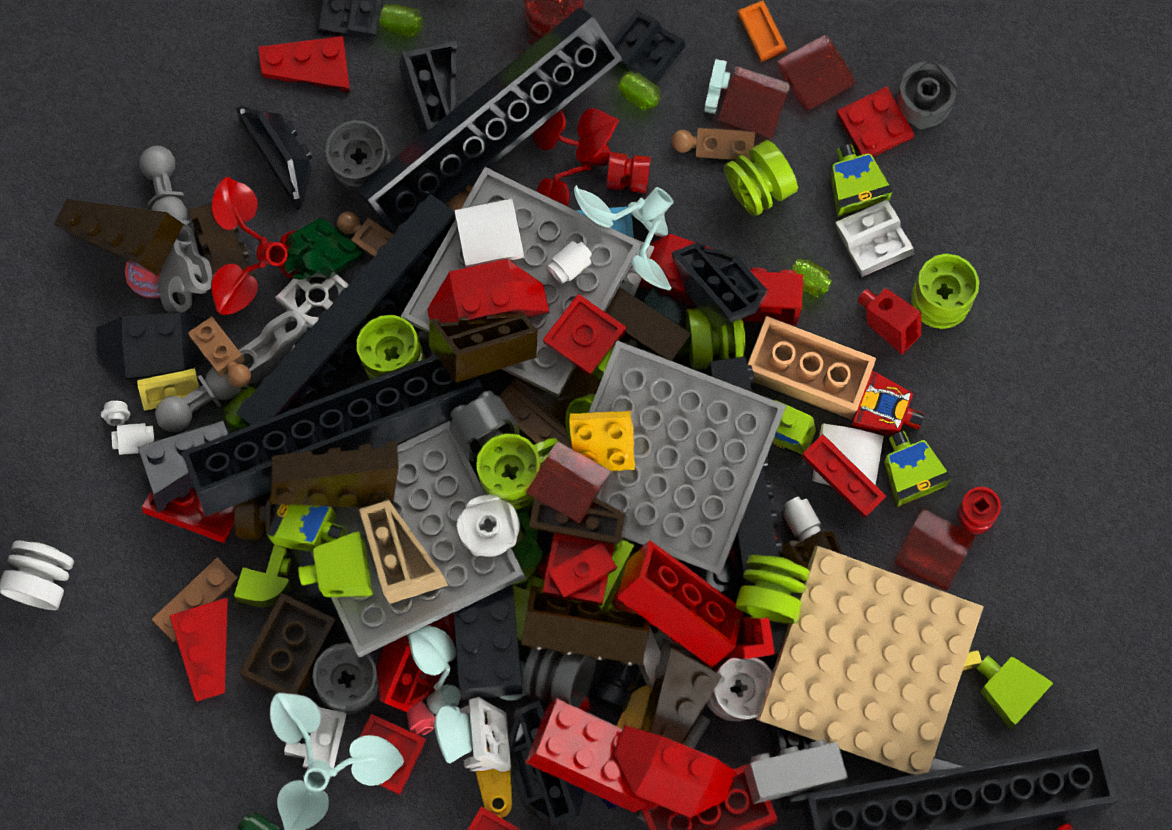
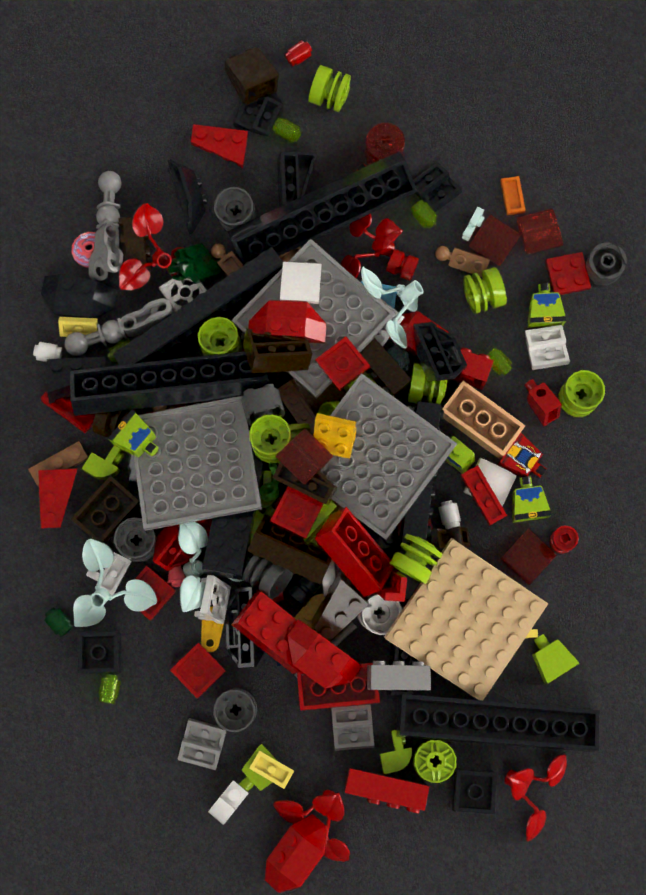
camera: 15 degrees right, 5 degrees up
(115, 413) = (41, 333): white plate -> none
(125, 232) = (77, 222): dark brown wedge -> none
(220, 352) = (114, 313): medium nougat plate -> none
(335, 477) = (159, 414): dark brown wedge -> none
(340, 568) = (148, 471): lime torso -> none
(398, 556) = (184, 473): tan wedge -> none
(474, 516) = (255, 478): white plate -> none
(570, 262) = (346, 314): white brick -> none
(582, 570) = (298, 514): red plate -> none

